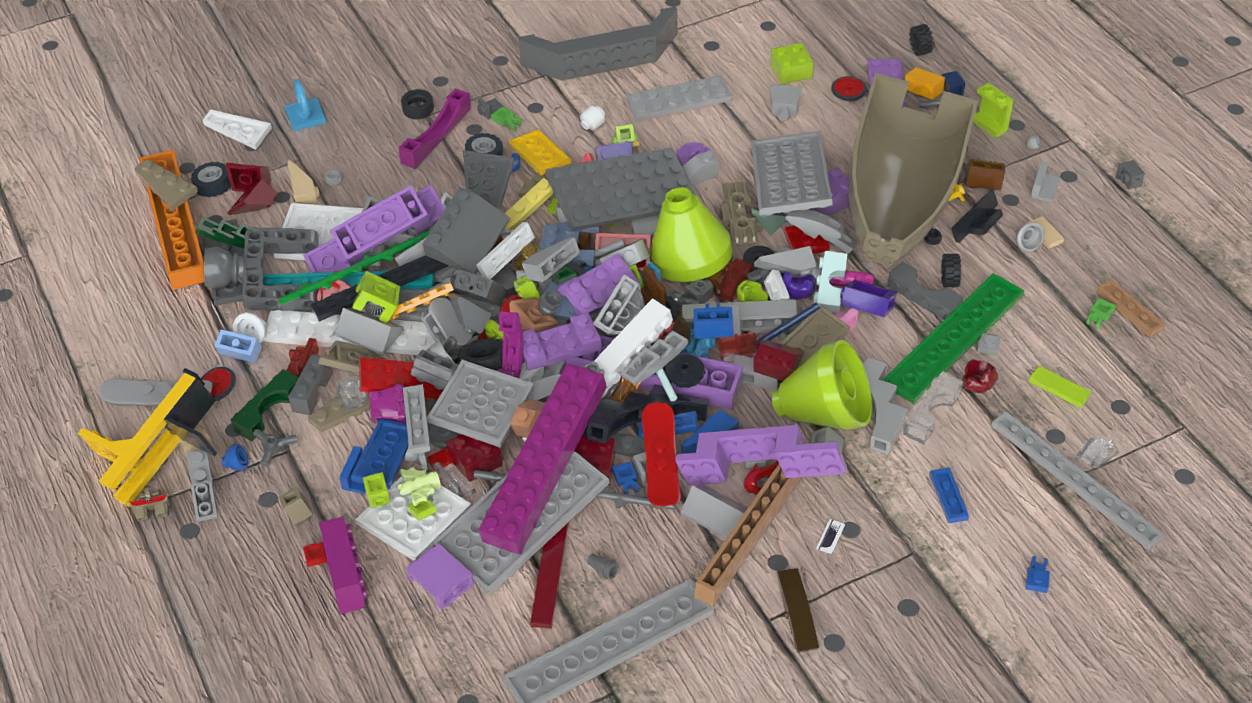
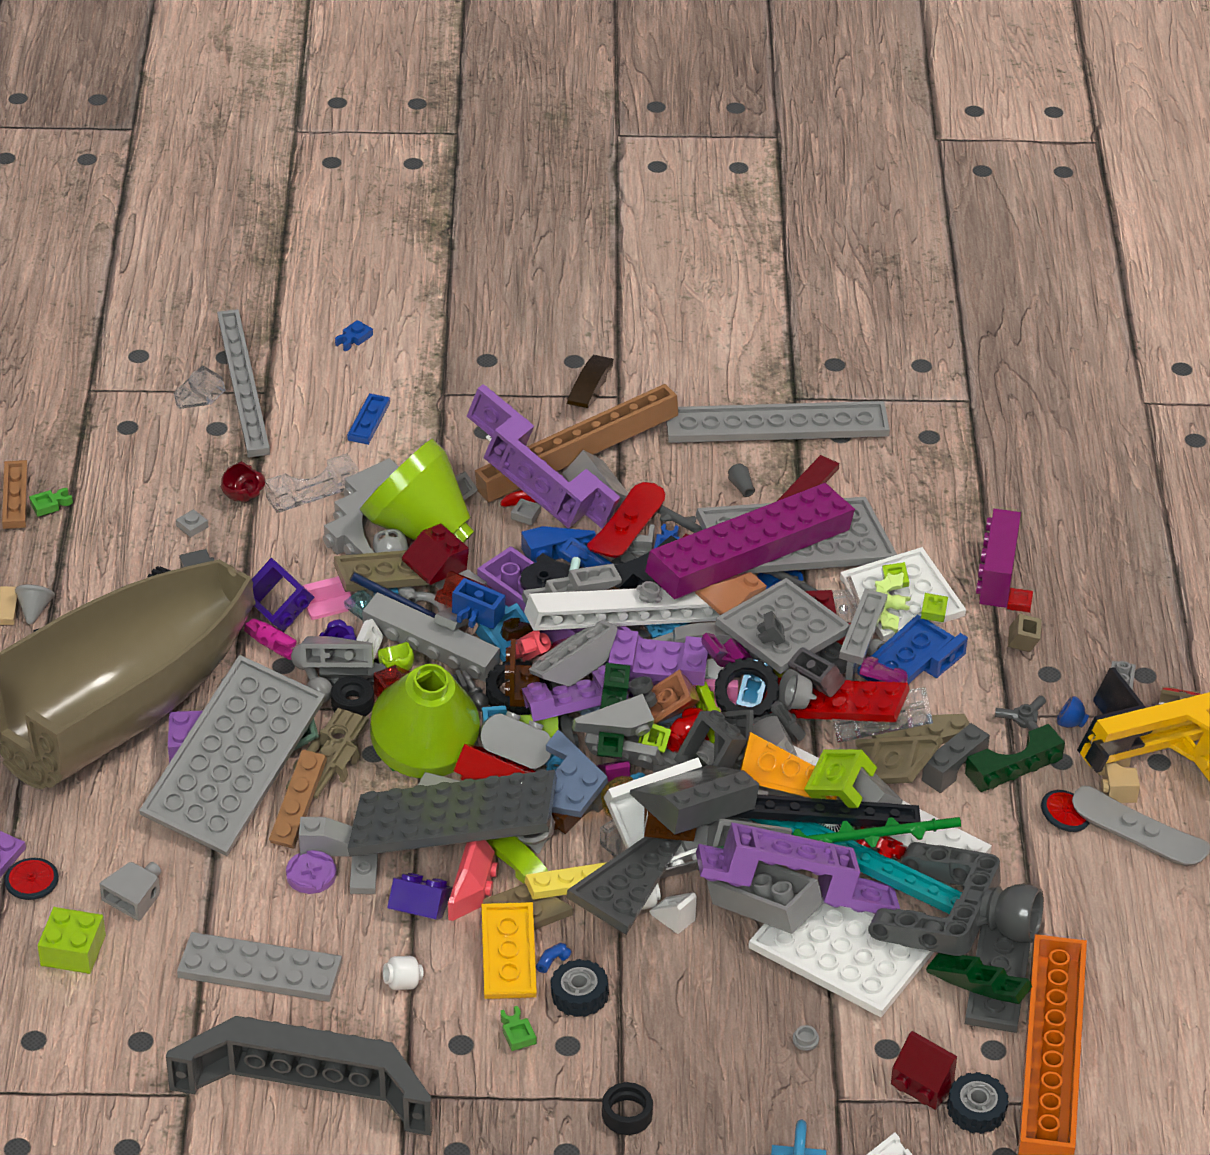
camera: 155 degrees left, 5 degrees down
(165, 184) = (1050, 1074): dark tan wing -> none
(238, 346) = (1025, 830): light blue brick -> none
(250, 325) = (1003, 847): white hair -> none
(254, 199) = (941, 1028): dark red slope -> none
(301, 355) = (951, 797): clear red panel -> none
(302, 186) = (854, 1034): tan slope -> none
(415, 150) = (581, 1066): magenta arch -> none
(440, 575) = (907, 525): medium lavender panel -> none
(481, 376) = (771, 629): none -> dark grey tile
(489, 107) = (527, 1061): dark grey bracket -> none
(607, 249) = (522, 762): light grey bar -> none
(625, 134) = (384, 917): lime piece -> none
(732, 175) = (298, 798): none -> medium nougat plate
(832, 265) = (293, 629): light aqua arch -> none
(953, 337) = (220, 537): green plate -> none
(1060, 386) = (167, 460): lime tile -> none

